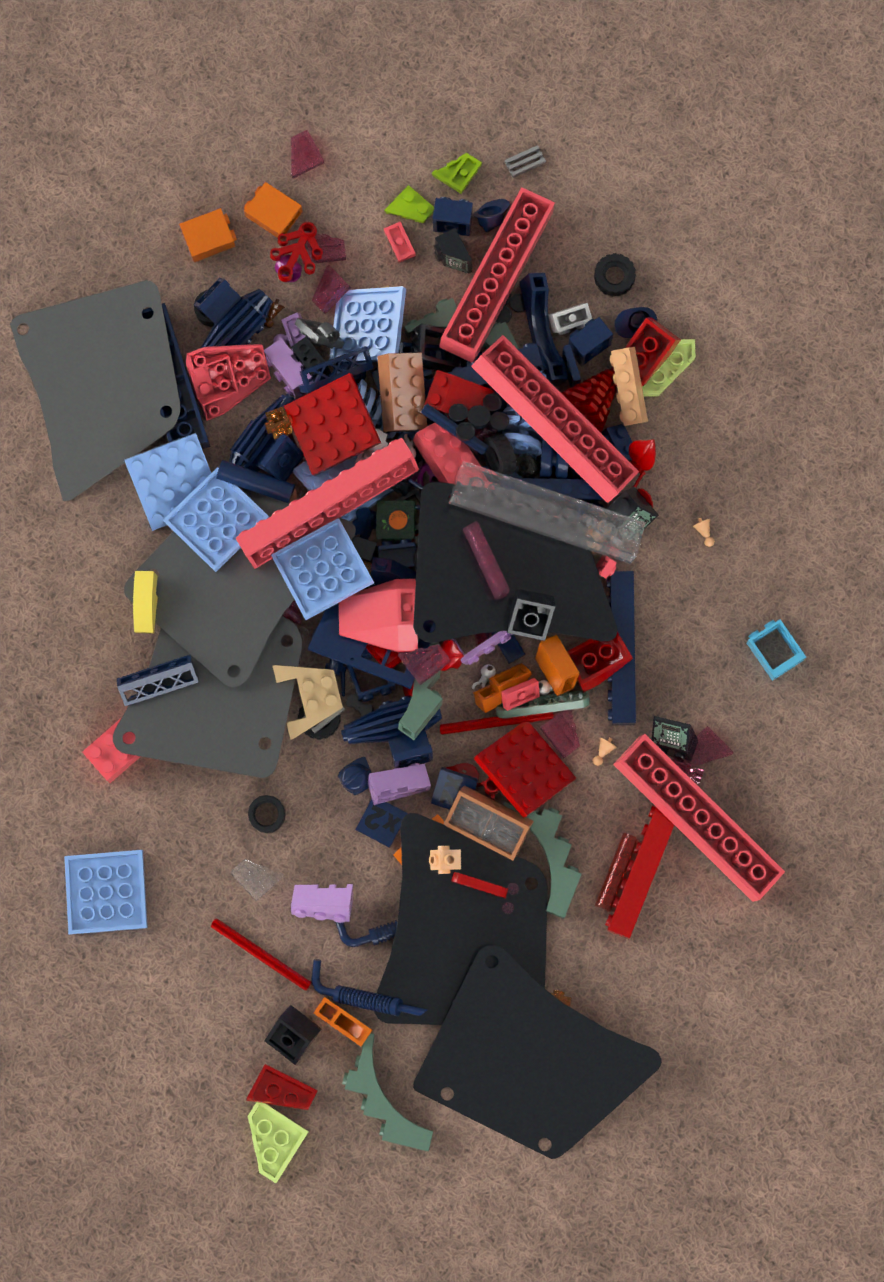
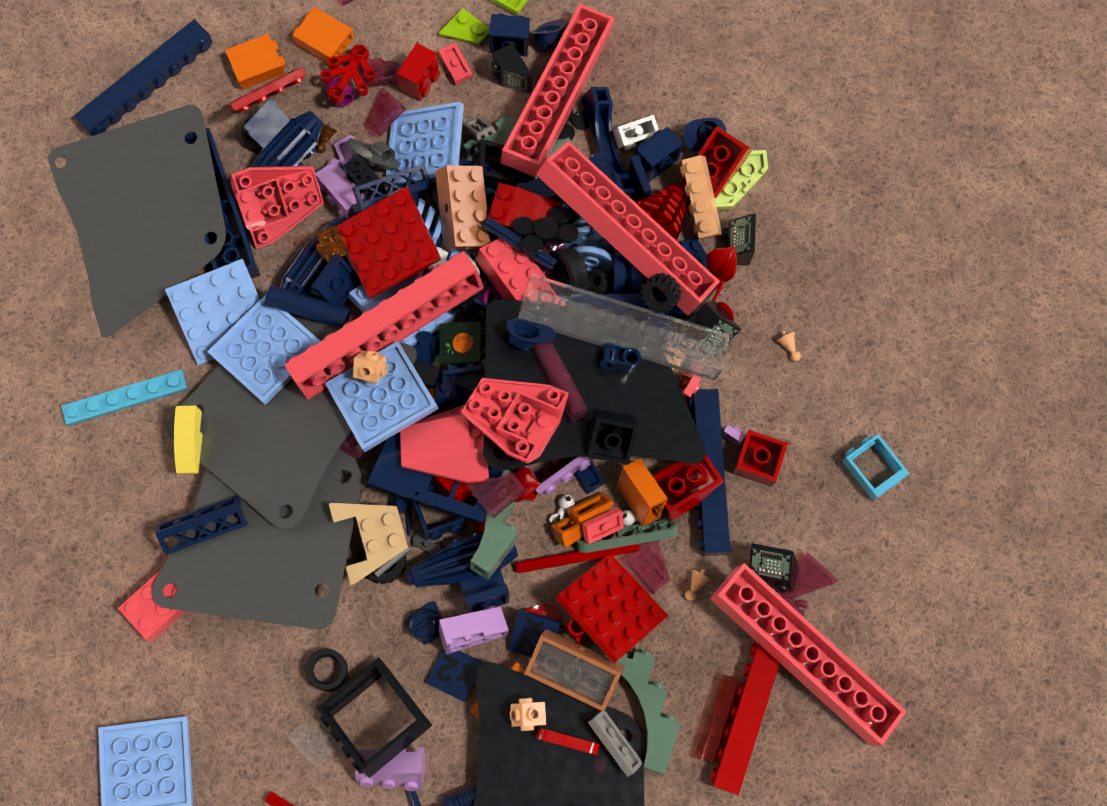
camera: 10 degrees left, 5 degrees down
(84, 558) = (124, 397): none -> medium azure plate
(101, 249) = (144, 79): none -> dark blue brick
(215, 269) = (271, 88): none -> red plate
(291, 831) = (349, 693): none -> black window
(313, 542) = (370, 366): none -> light nougat brick
(364, 252) = (418, 72): none -> red brick
(423, 315) = (479, 131): none -> light grey tile
(444, 592) = (516, 415): none -> coral wedge
(457, 517) = (527, 334): none -> dark blue piece
(522, 888) = (615, 743): none -> light grey plate
(540, 541) = (617, 358): none -> dark blue piece
(590, 478) = (652, 299): none -> black tyre
(623, 263) = (679, 75): black tyre -> none
(646, 614) = (733, 434): none -> lavender plate
(663, 427) = (741, 234): none -> slope
(669, 637) = (760, 458): none -> red brick

